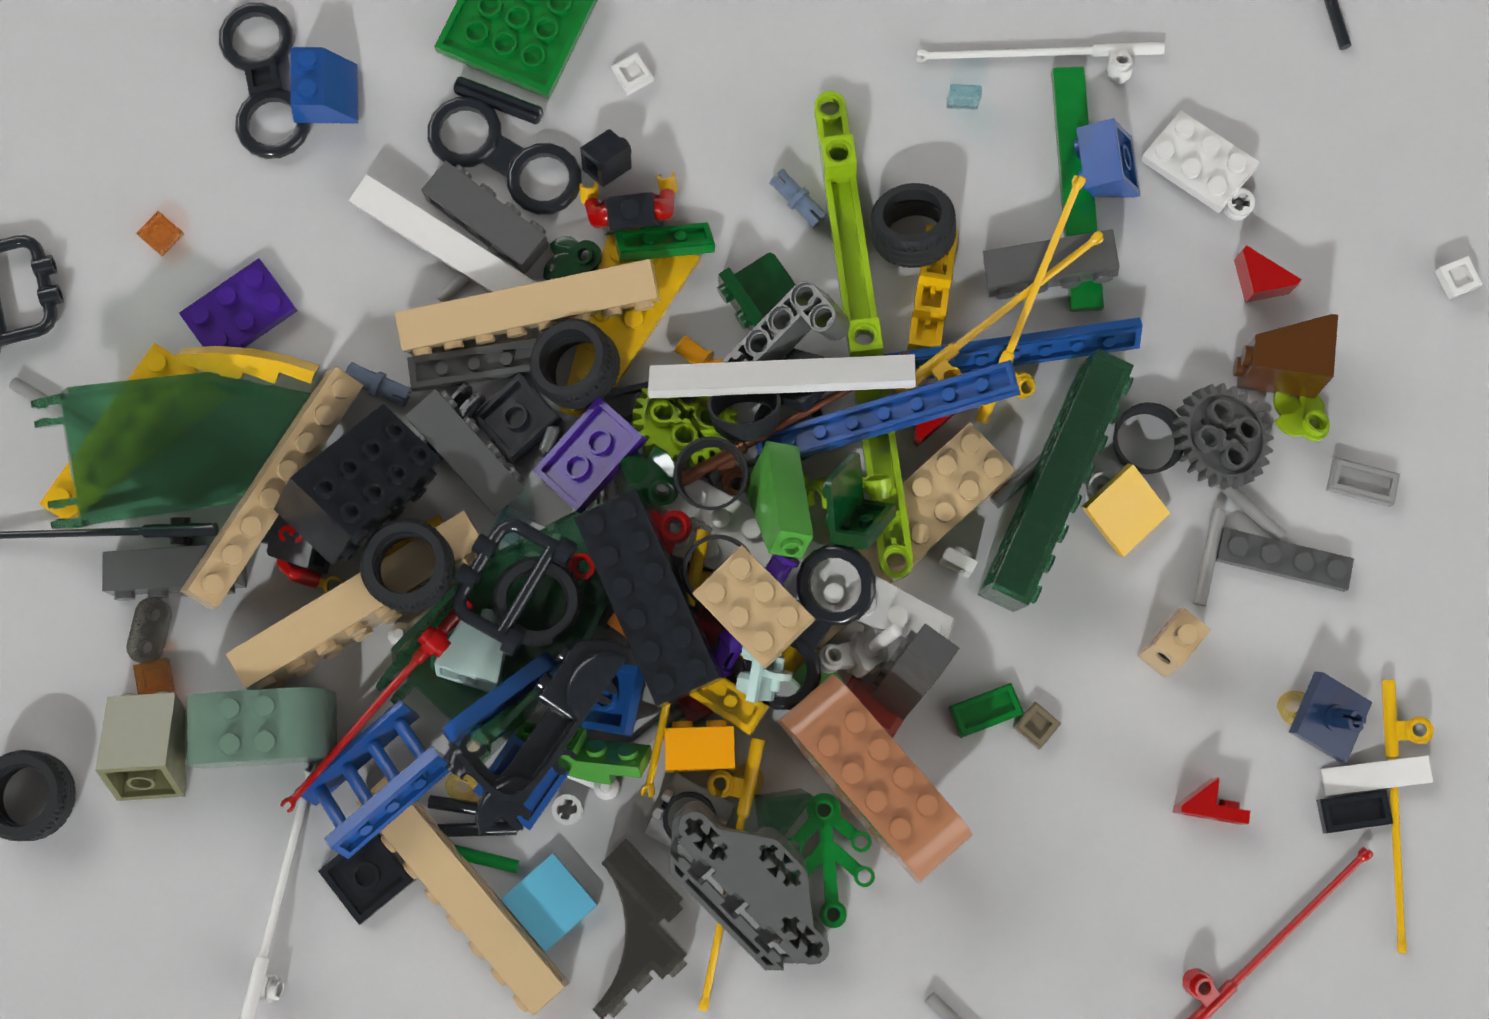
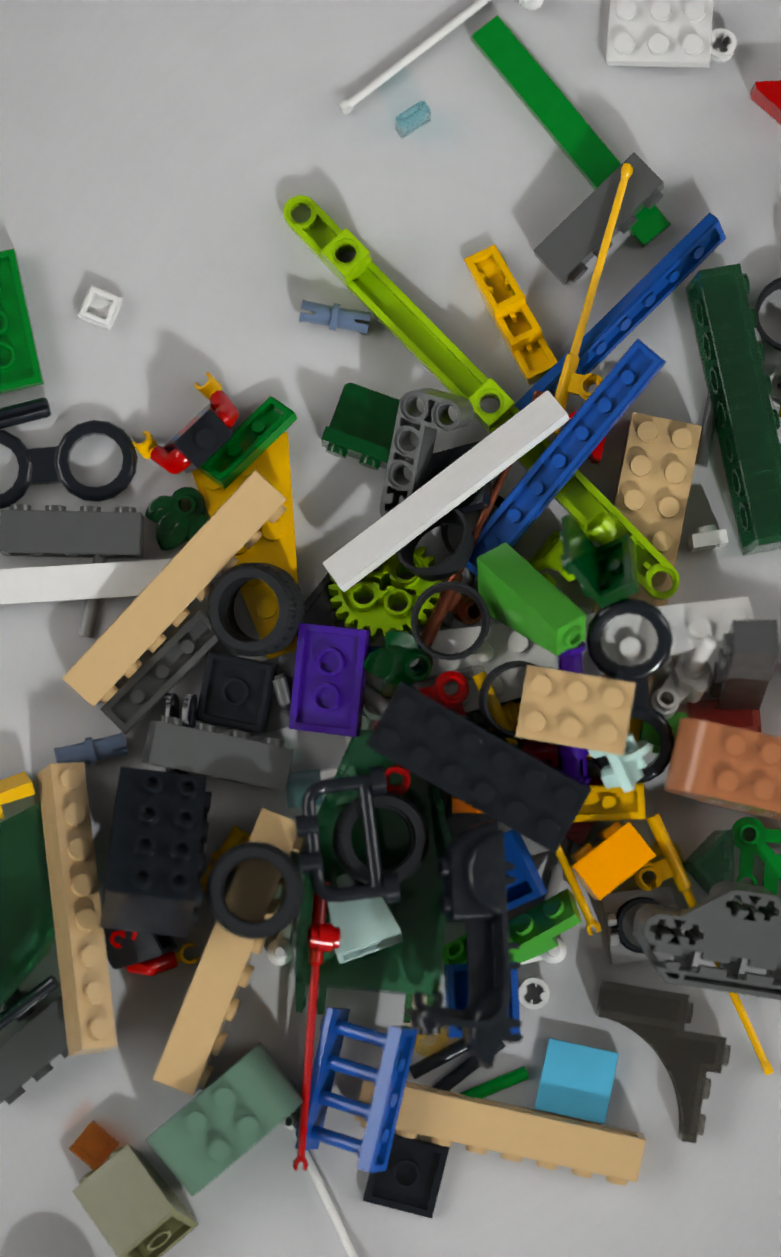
camera: 35 degrees left, 5 degrees up
(146, 630) = (55, 1110): clear smoke plate -> none
(498, 699) = (411, 943): blue beam -> none
(606, 157) = (139, 403): black brick -> none
(694, 353) = (351, 521): light orange pin -> none
(913, 200) = (435, 249): black tyre -> none
(1025, 381) = (651, 339): yellow piece -> none
(1107, 160) = (581, 90): blue slope -> none

